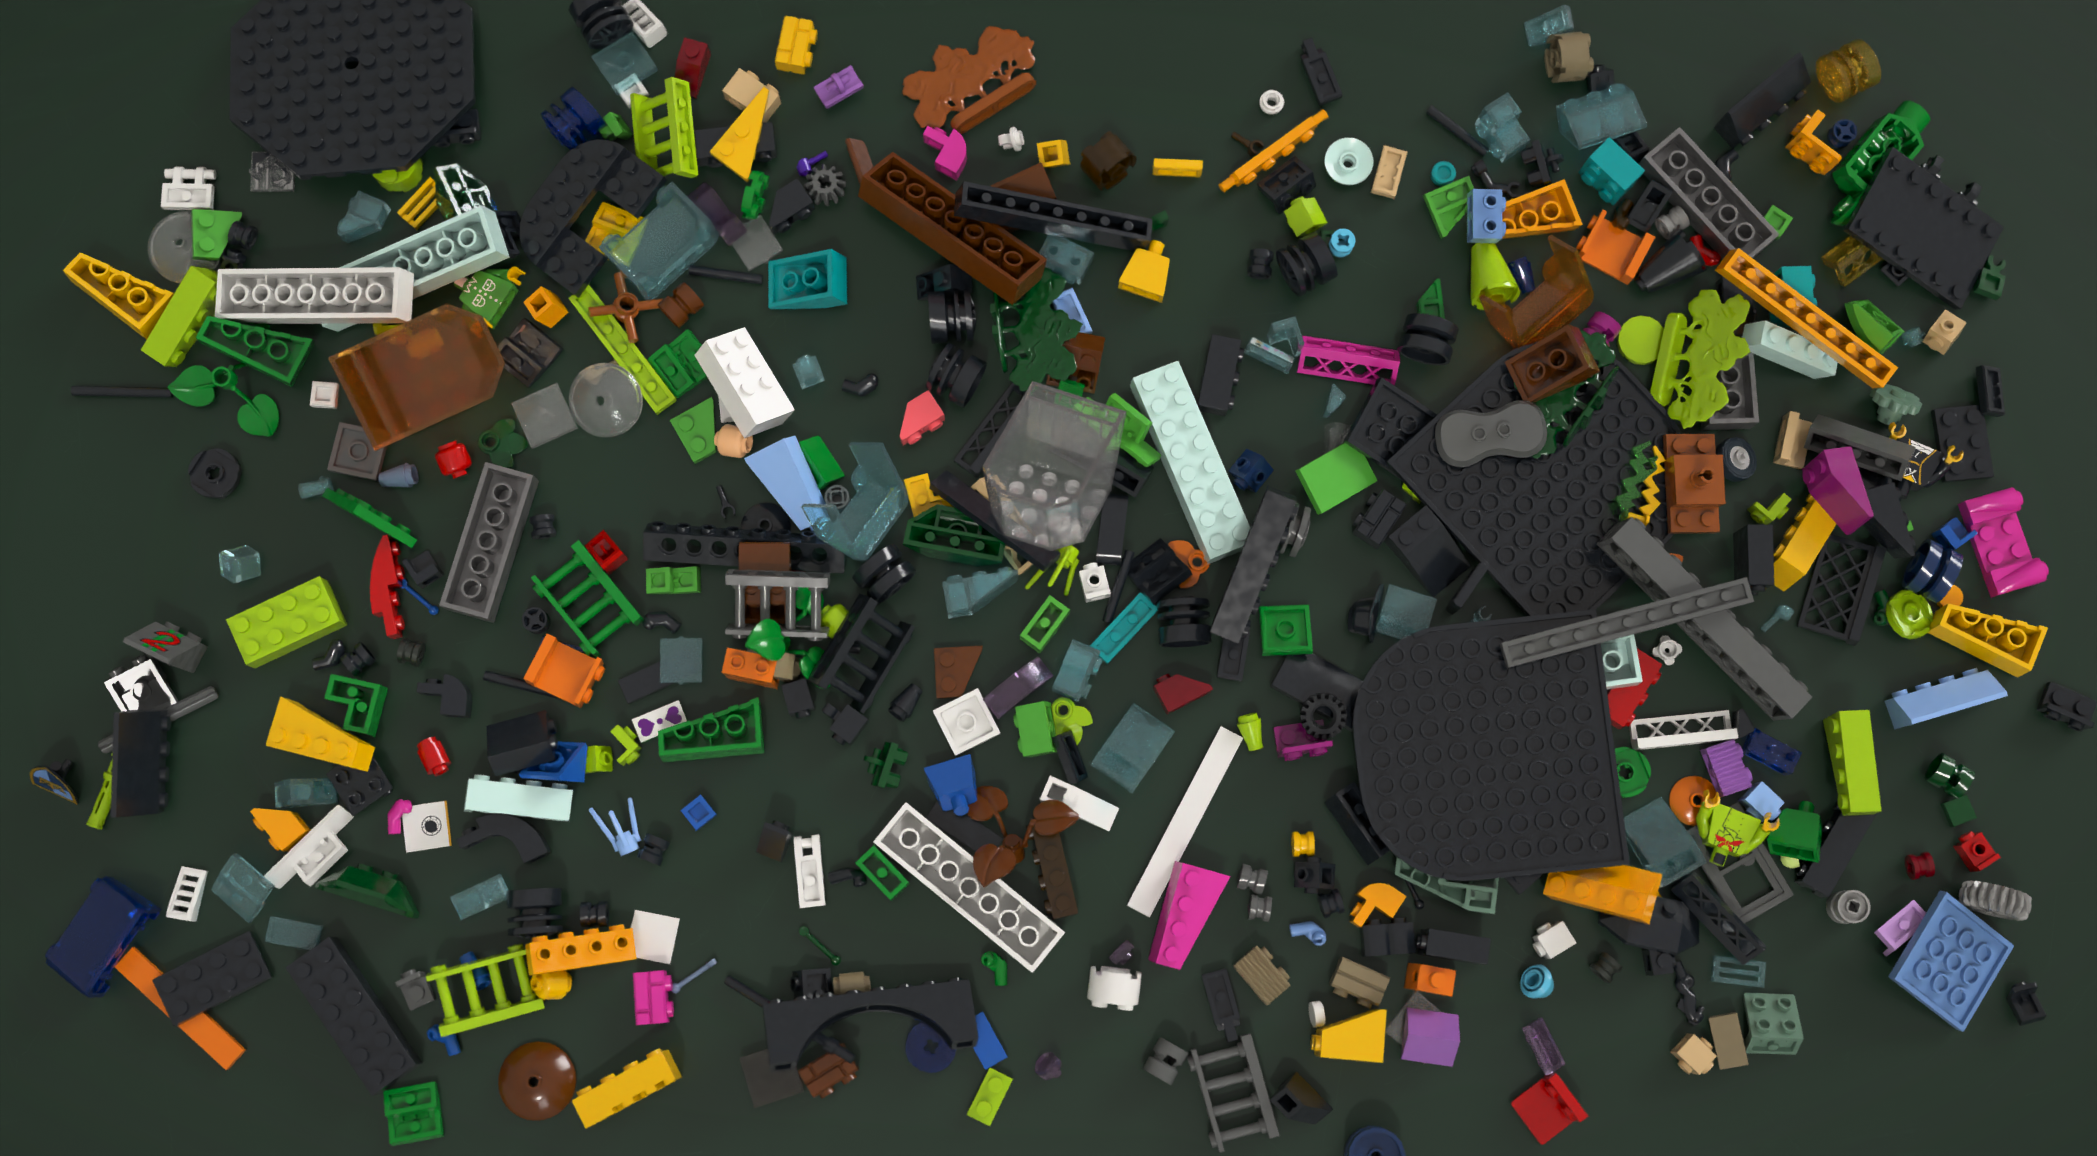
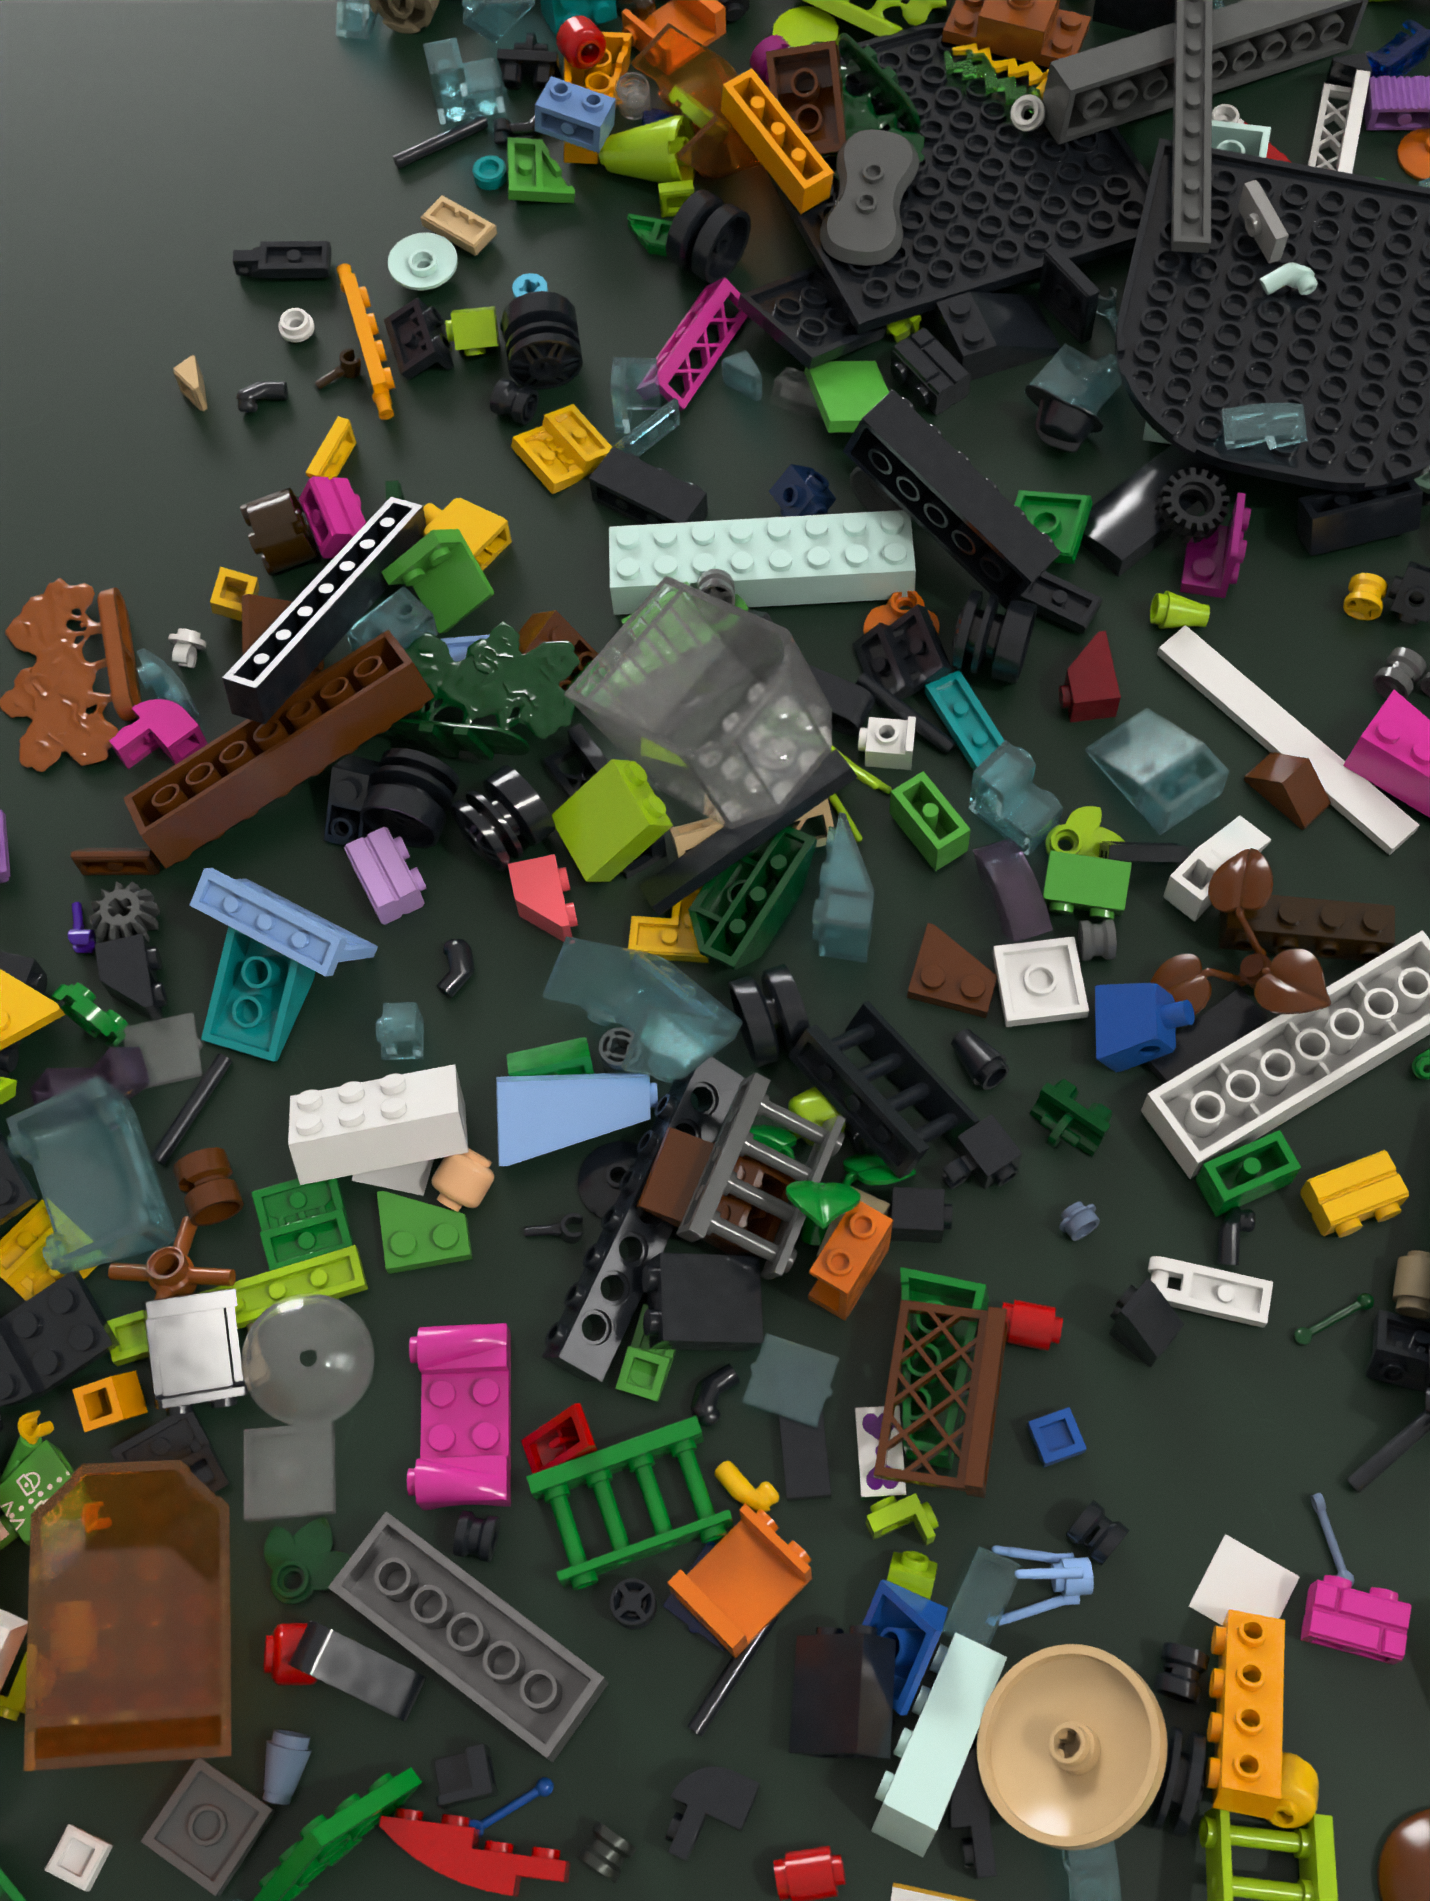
camera: 60 degrees left, 15 degrees down
(452, 493) = (357, 1670): none -> black beam
(526, 863) = (1072, 1747): none -> tan dish
(584, 339) = (194, 1351): none -> panel
(599, 800) = (983, 1597): none -> clear light blue tile
(603, 494) = (463, 1416): none -> dark pink piece
(613, 655) = (743, 1491): none -> yellow arm
(689, 764) = (981, 1404): none -> reddish brown fence
(703, 597) = (703, 1302): none -> black brick
(756, 778) = (1032, 1325): none -> red brick
(827, 788) = (1079, 1220): none -> sand blue plate
(835, 277) = (278, 922): none -> light blue fence
(893, 937) = (1354, 1194): none -> yellow brick
(902, 322) = (385, 875): none -> lavender brick
(971, 437) = (611, 820): none -> lime brick
(984, 135) = (164, 681): none -> clear light blue slope
(1003, 746) = (1097, 940): none -> dark grey wheel
(1106, 276) = (443, 576): none -> bright green bracket
(1132, 189) = (331, 513): none -> dark pink brick
(1148, 443) = (717, 578): none -> dark grey wheel
(1149, 832) = (1290, 786): none -> reddish brown slope
(1202, 57) = (191, 382): none -> tan slope
(1211, 99) = (260, 391): none -> black arm
(1239, 307) = (562, 448): none -> yellow slope
(1383, 742) = (1266, 422): none -> clear light blue slope
(1461, 306) = (673, 195): none -> lime tile
(1503, 358) = (776, 141): none -> light orange brick
(1507, 726) = (1292, 275): none -> light aqua arm
(1531, 294) = (690, 106): none -> lime tile
(1533, 244) = (630, 88): none -> clear wheel
(1542, 695) = (1262, 221): none -> light grey plate
(1548, 196) = (581, 42): none -> red head
(1604, 512) = (1019, 108): none -> white plate

